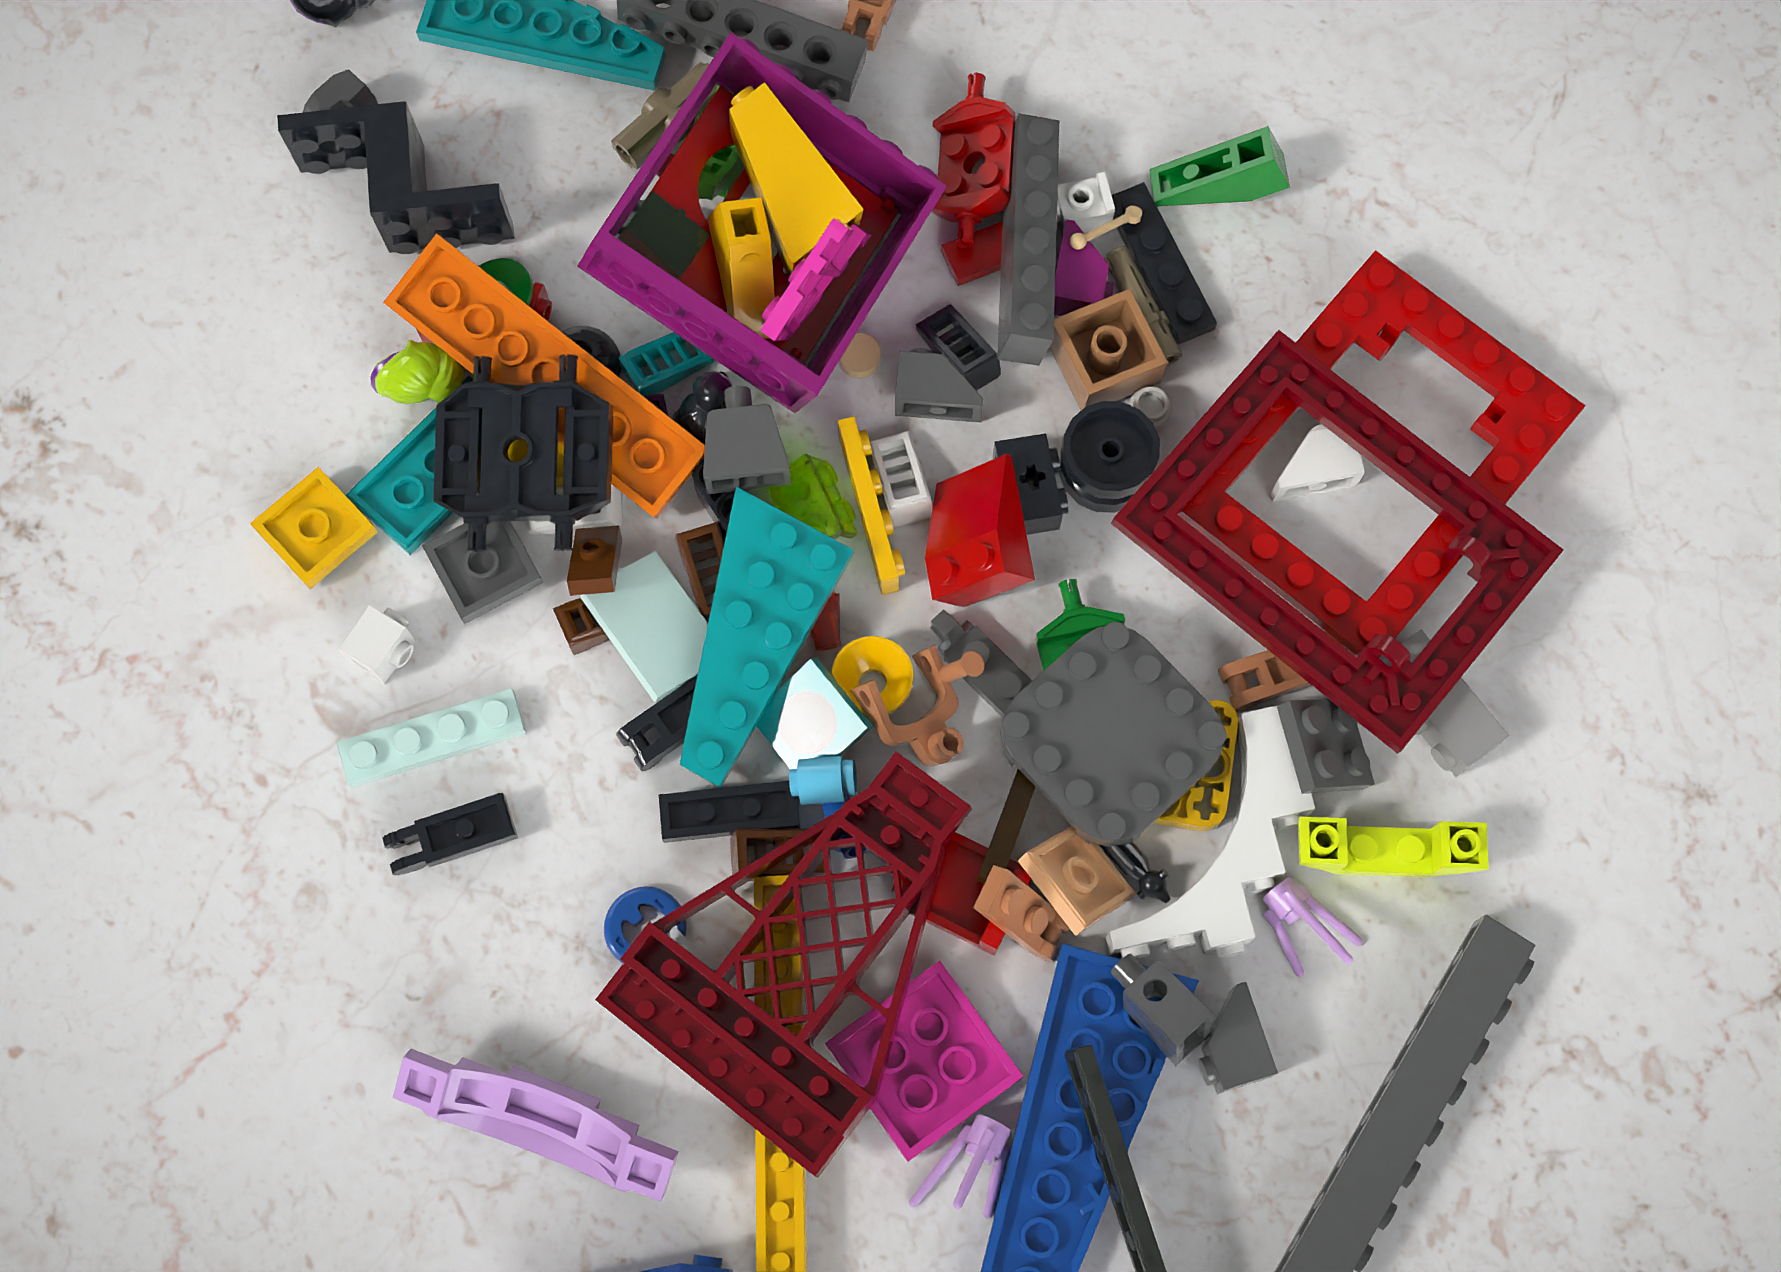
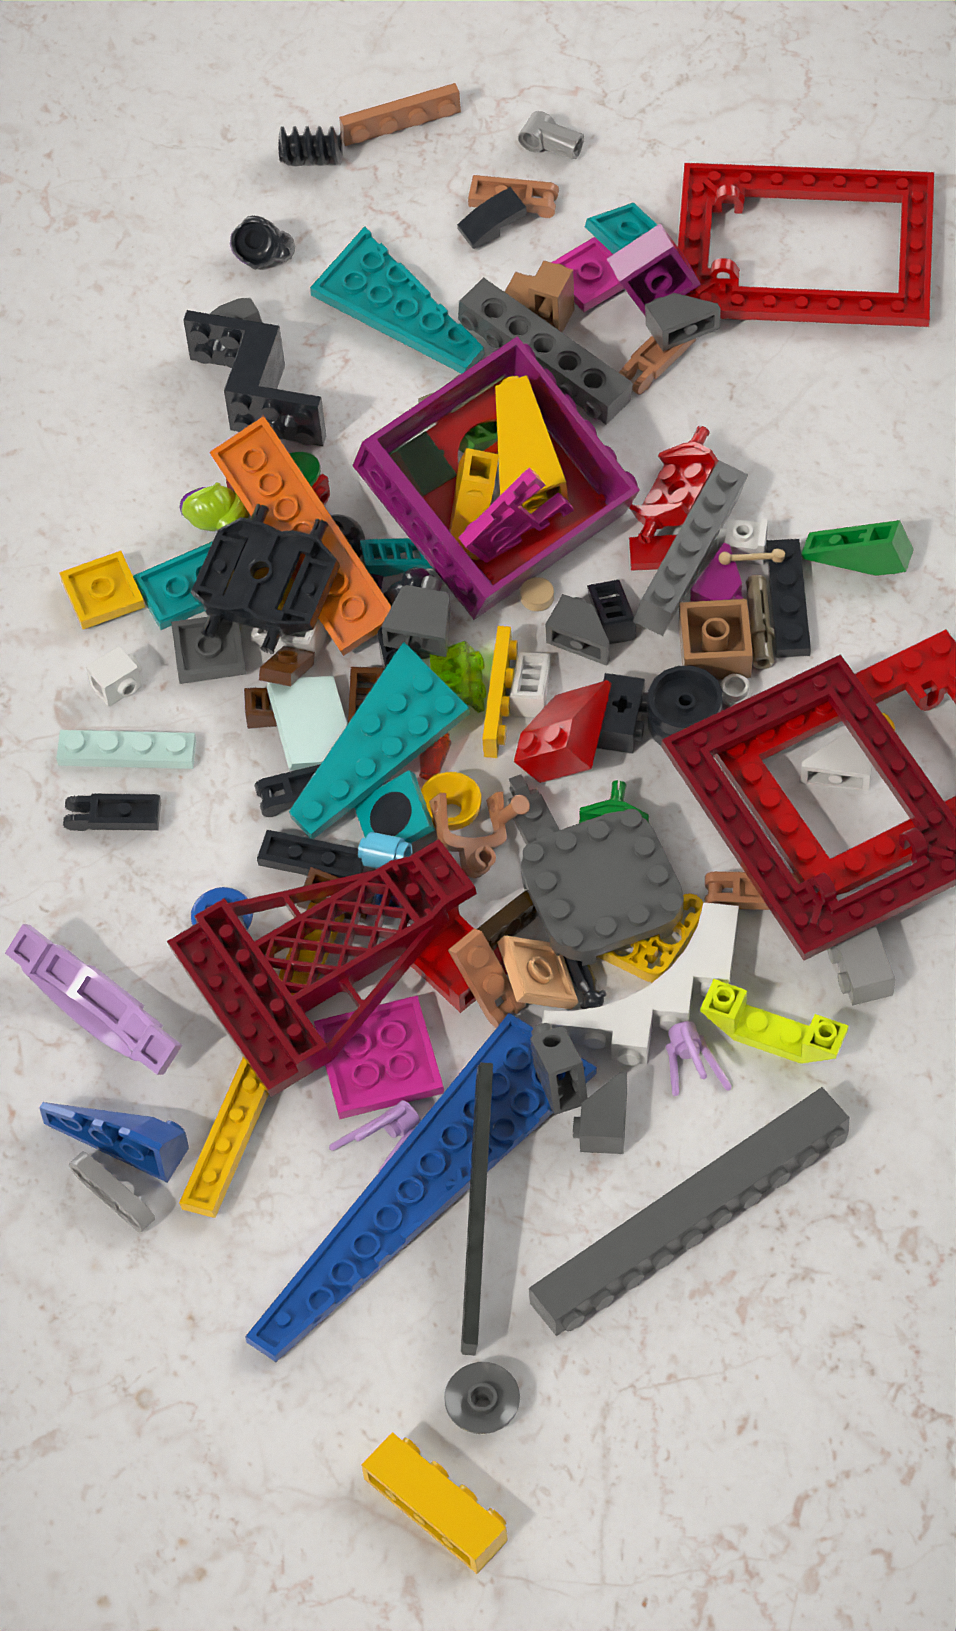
camera: 25 degrees right, 15 degrees down
(1324, 747) = (756, 946): dark grey plate -> none

